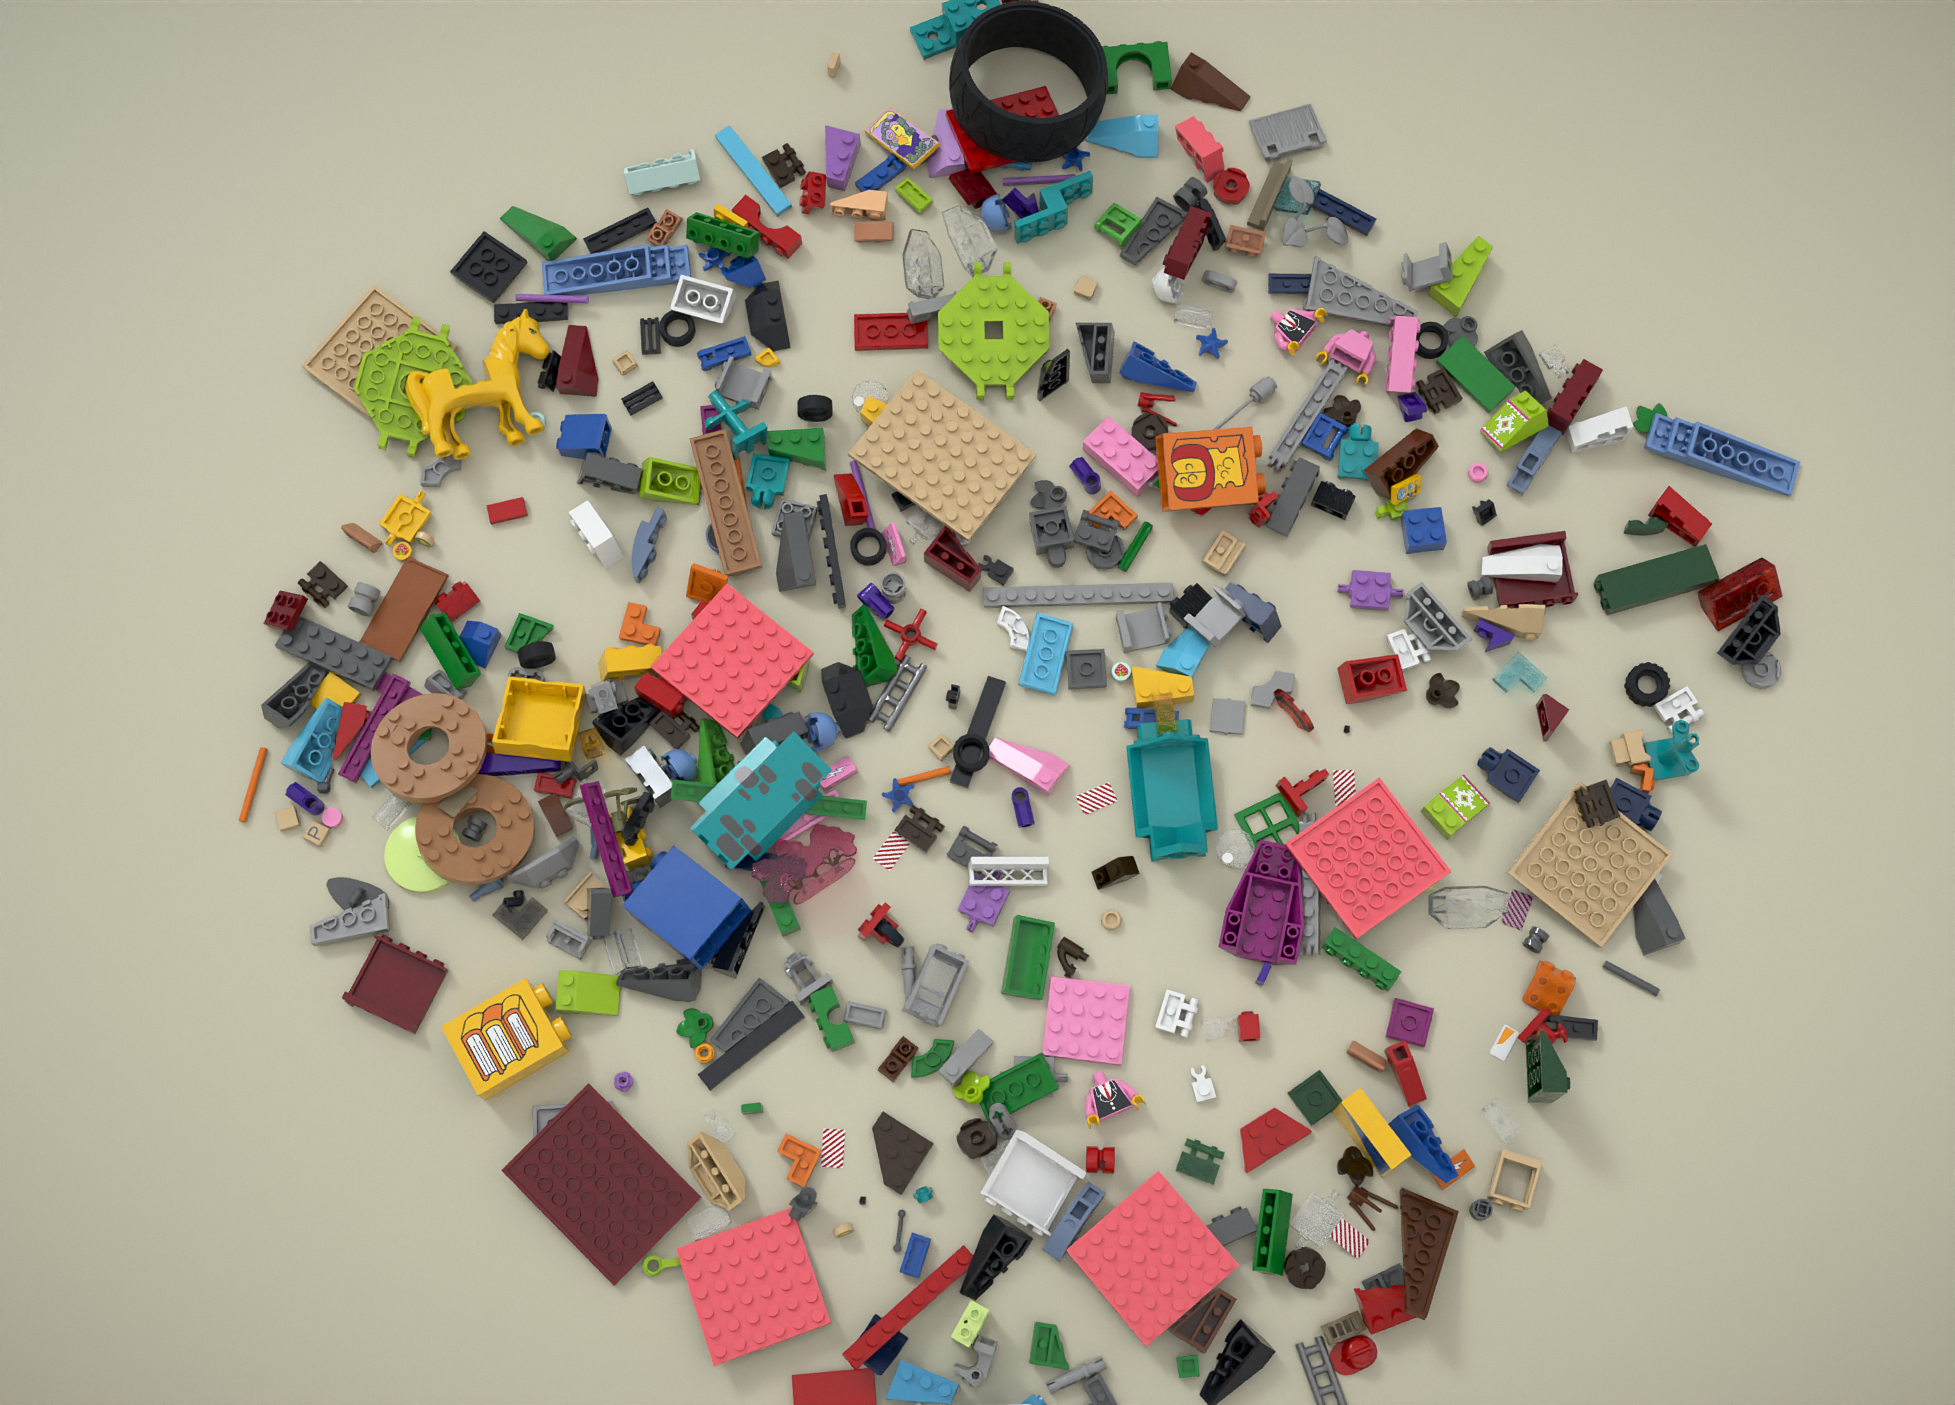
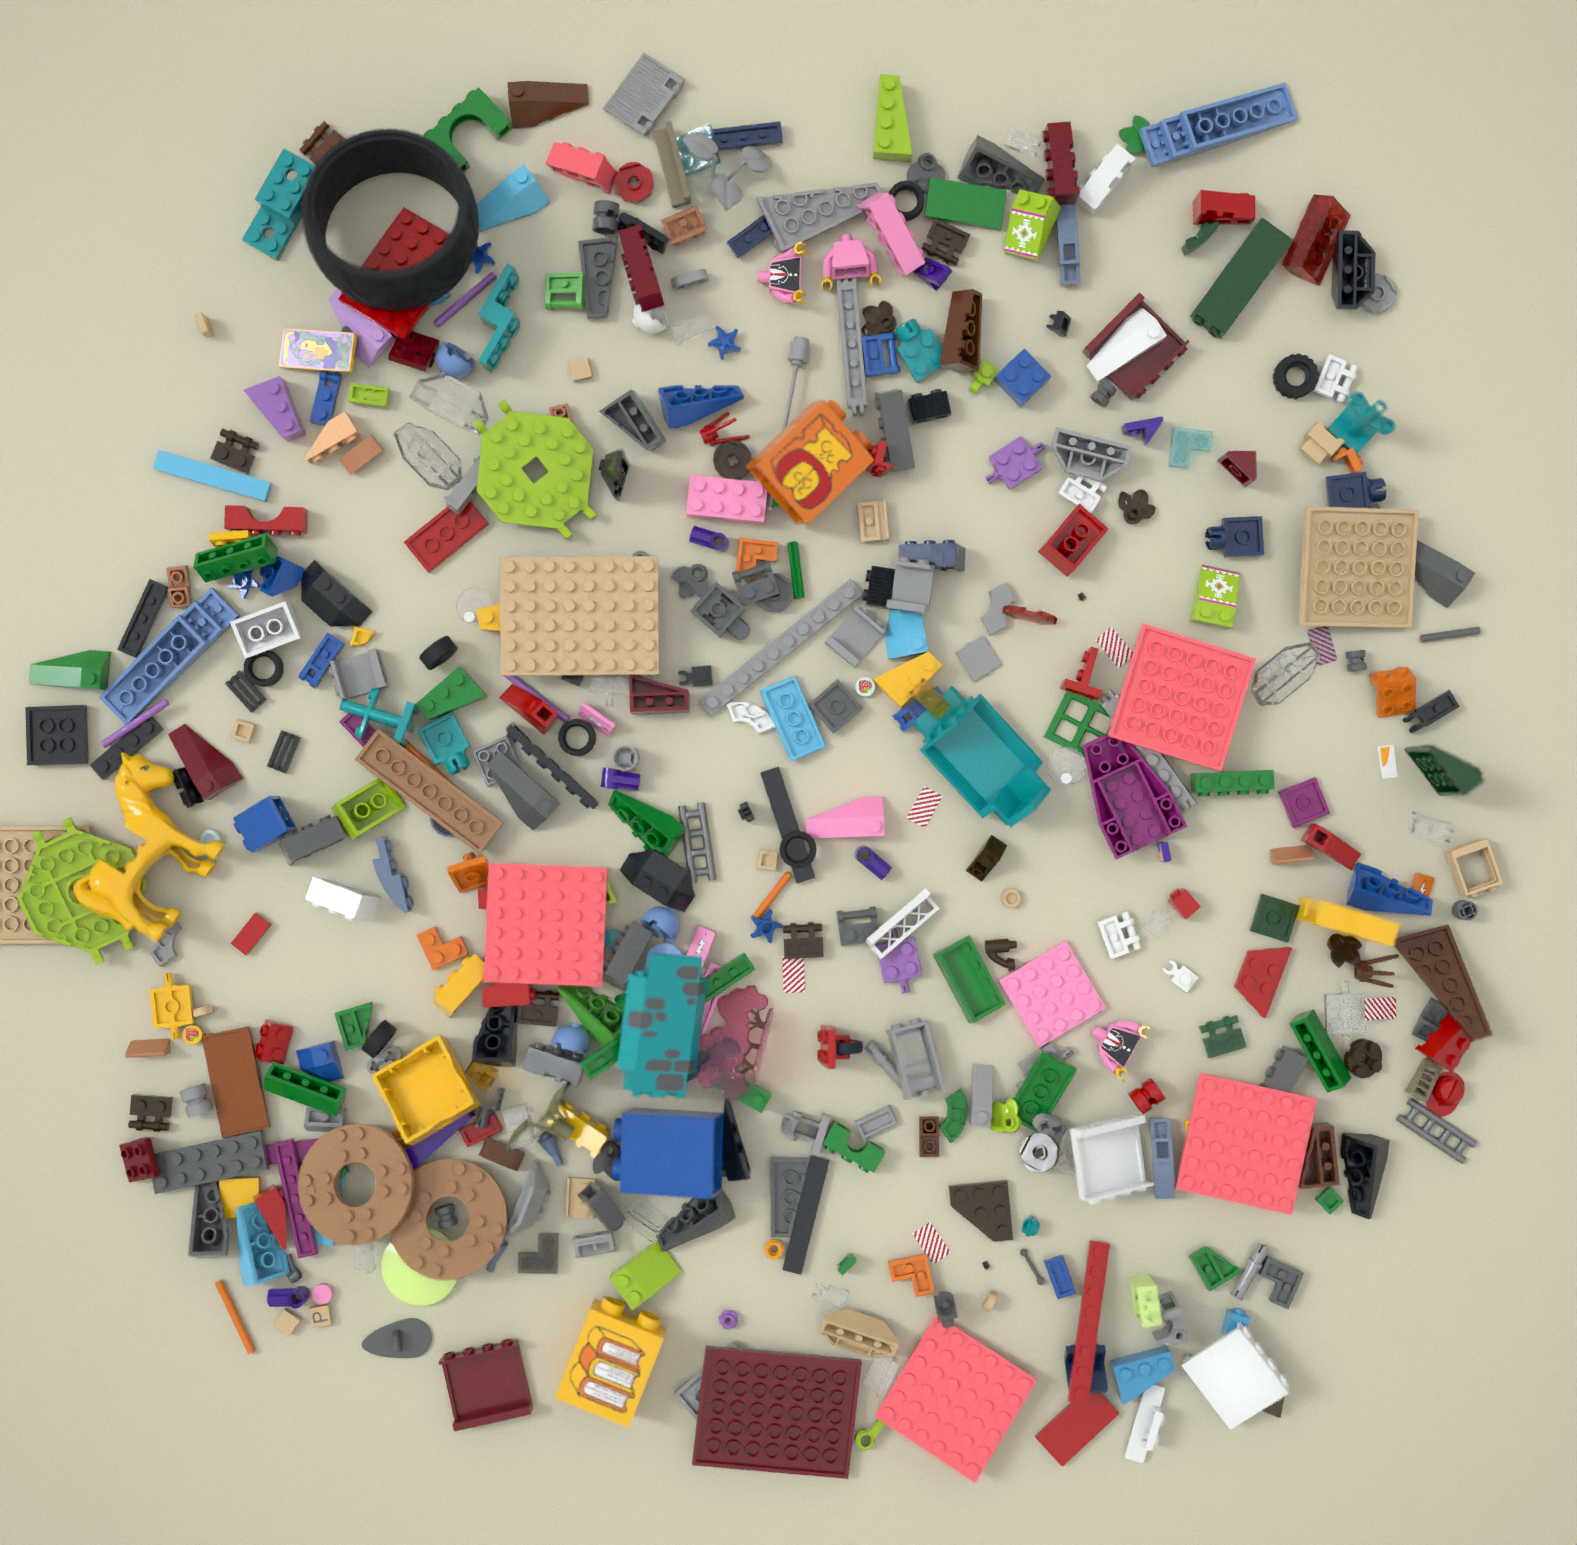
camera: 40 degrees left, 15 degrees up
(361, 921) = (417, 1356): light grey wing -> none
(453, 804) = (416, 1214): dark tan sticker -> none
(515, 901) = (528, 1246): black arm -> none
(605, 696) = (464, 1031): light grey tile -> none
(606, 839) = (564, 1151): magenta tile -> none
(638, 818) = (575, 1113): black hinge -> none
(662, 173) = (137, 538): light aqua wedge -> none
(692, 1026) = (749, 1237): green plate -> none
(813, 191) = (281, 458): red bracket -> none
(910, 628) = (679, 785): red bar -> none
(996, 1249) = (1117, 1224): black wedge -> none
(1020, 204) = (473, 336): dark purple slope -> none
(1406, 489) = (983, 353): yellow tile -> none
(1428, 271) = (860, 138): light grey panel -> none
(1477, 472) = (1028, 291): bright pink tile -> none
(1522, 622) = (1158, 400): tan wedge -> none
(1538, 1024) = (1415, 733): red piece -> none
(1602, 801) = (1338, 511): dark brown plate -> none

